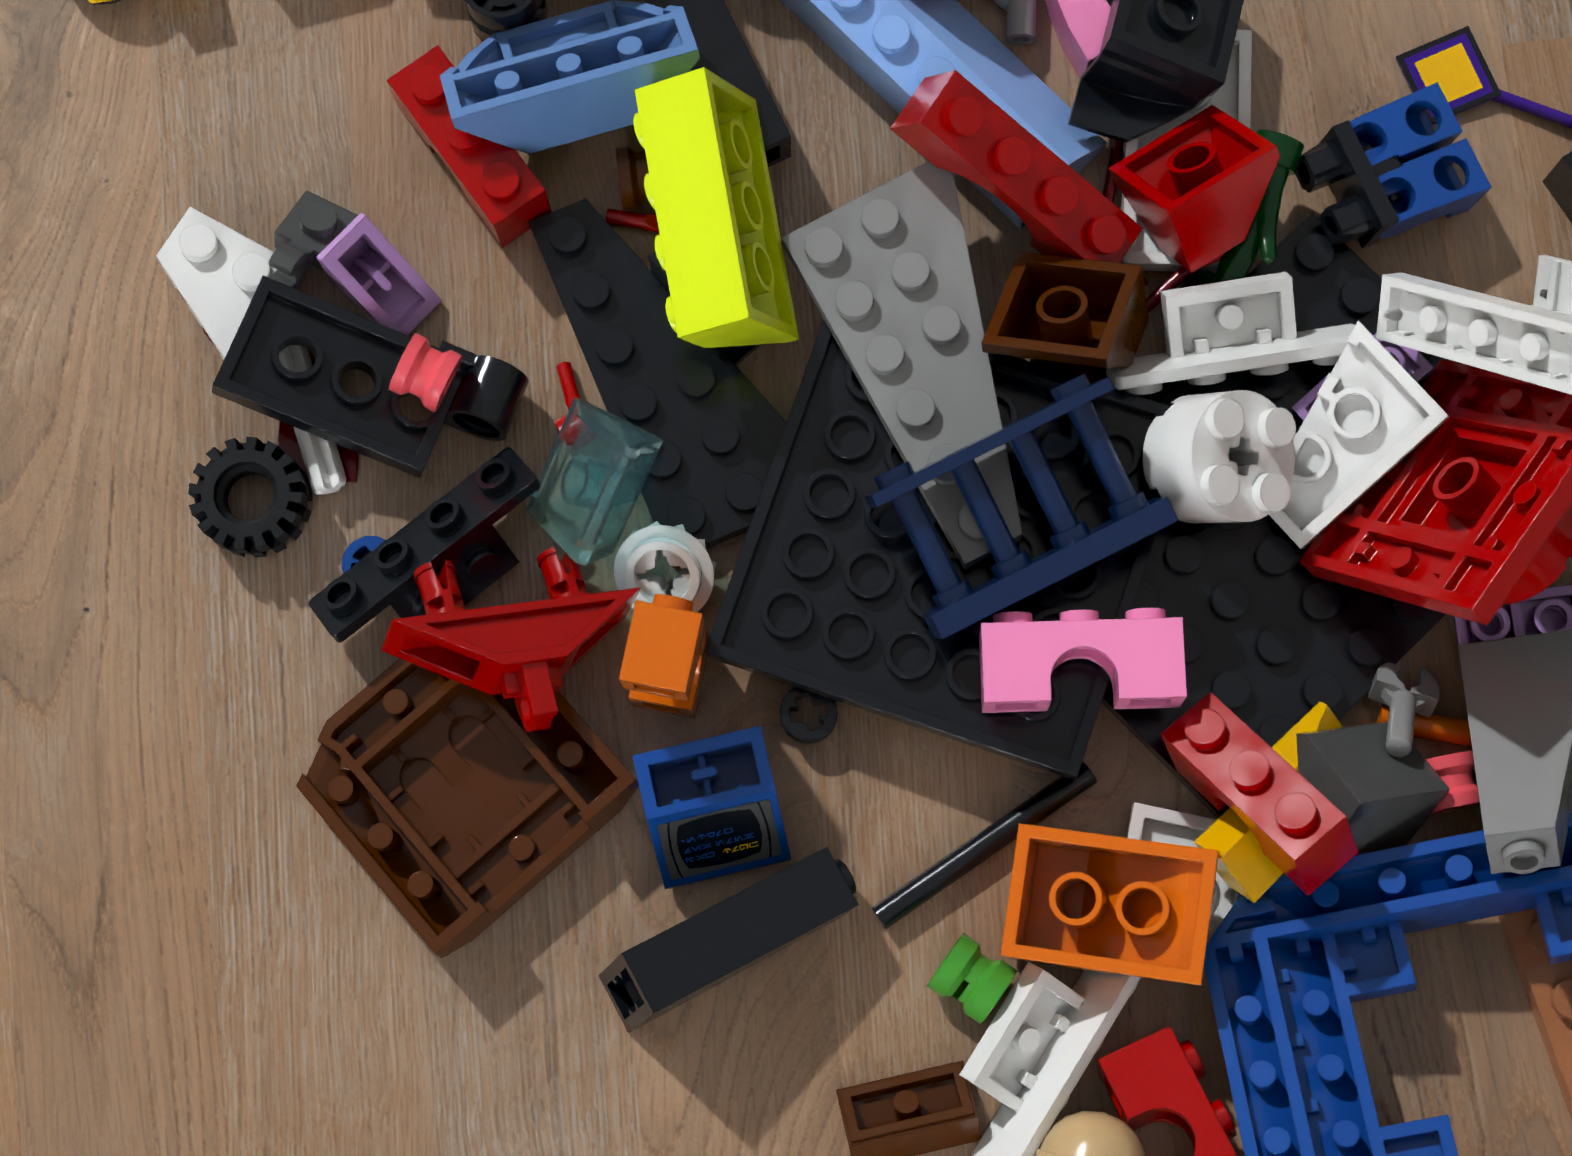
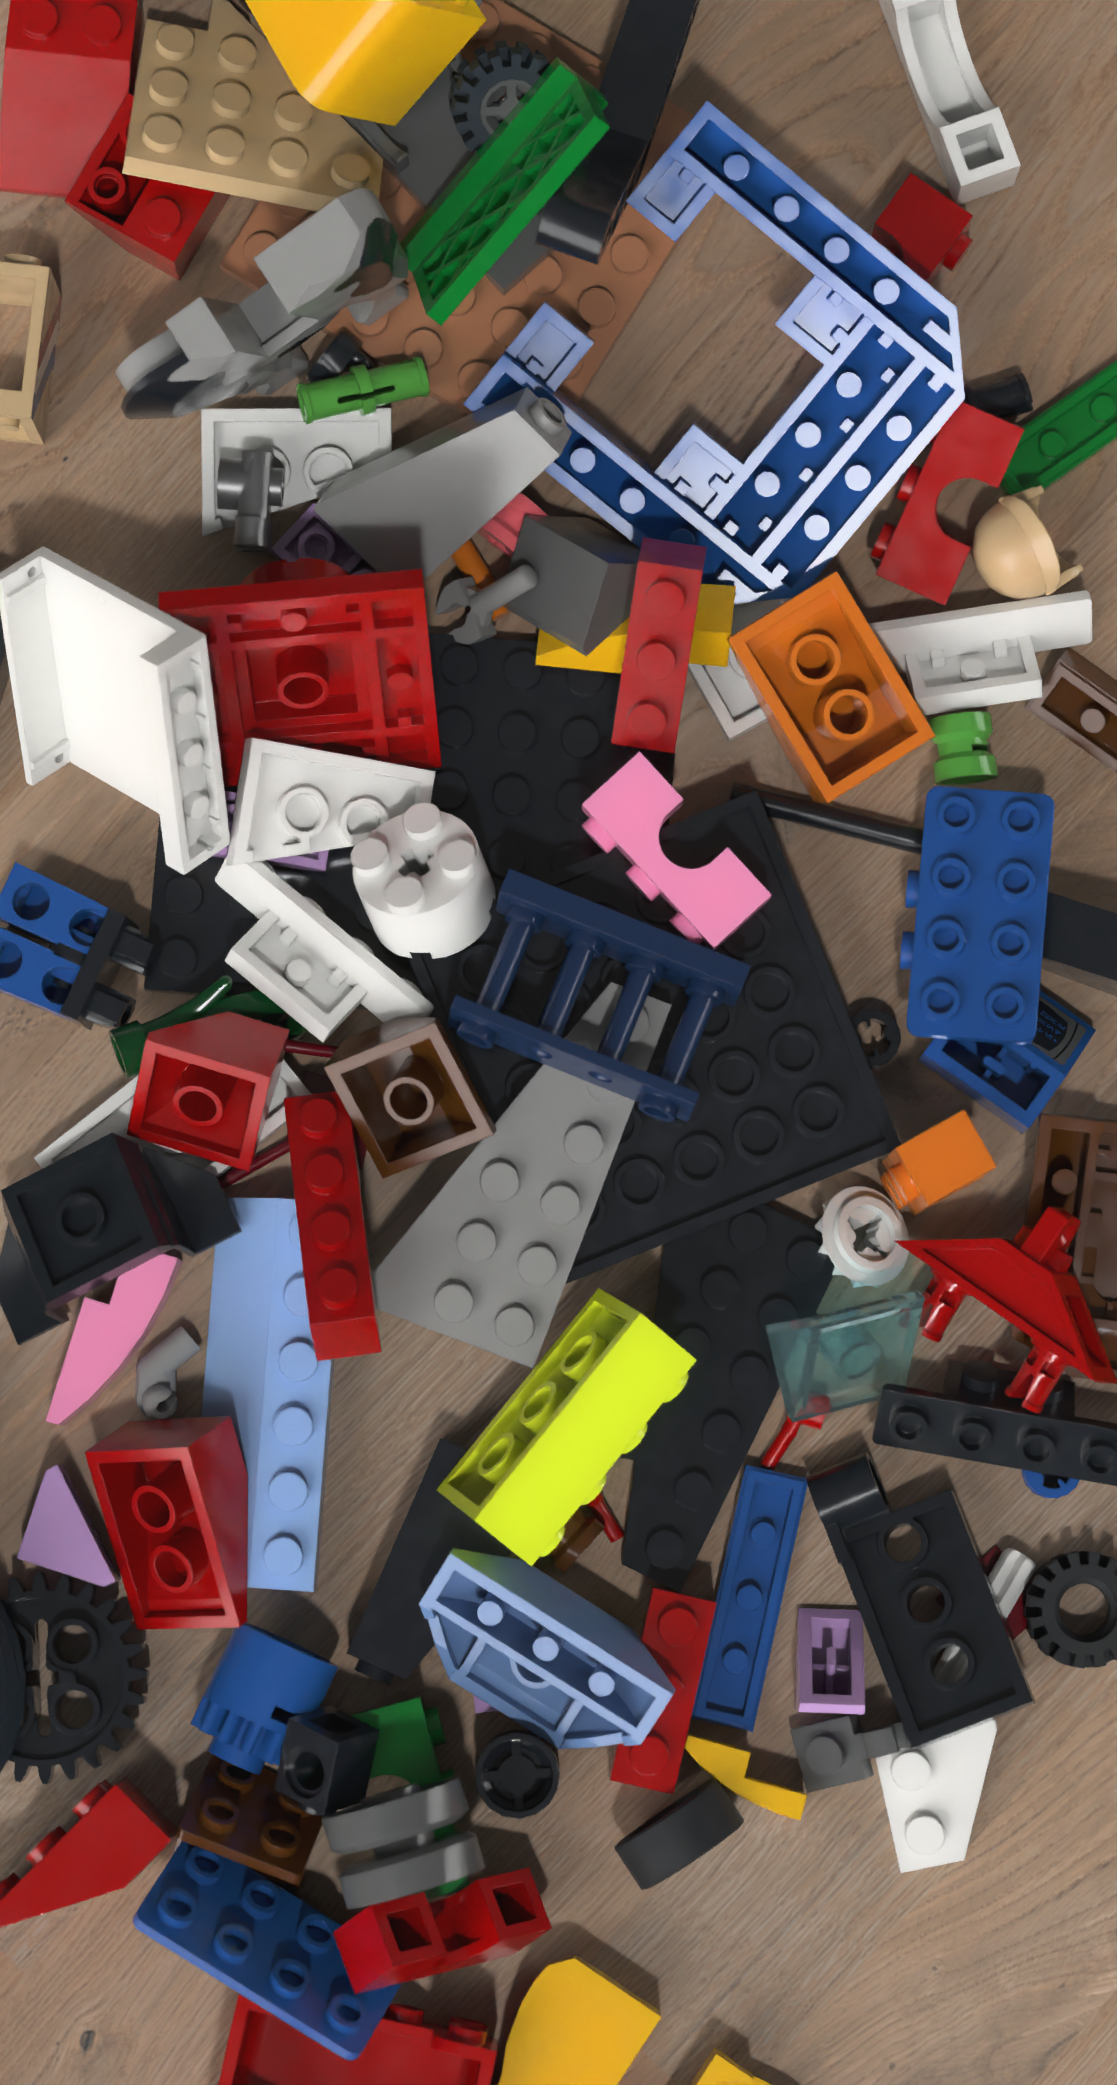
camera: 135 degrees left, 5 degrees up
(356, 65) = (679, 1834): none -> black tyre
(377, 145) = (729, 1765): none -> yellow slope
(425, 372) = (877, 1548): coral wheel -> none
(480, 270) = (749, 1597): none -> blue tile
(829, 865) = (978, 915): none -> blue bracket

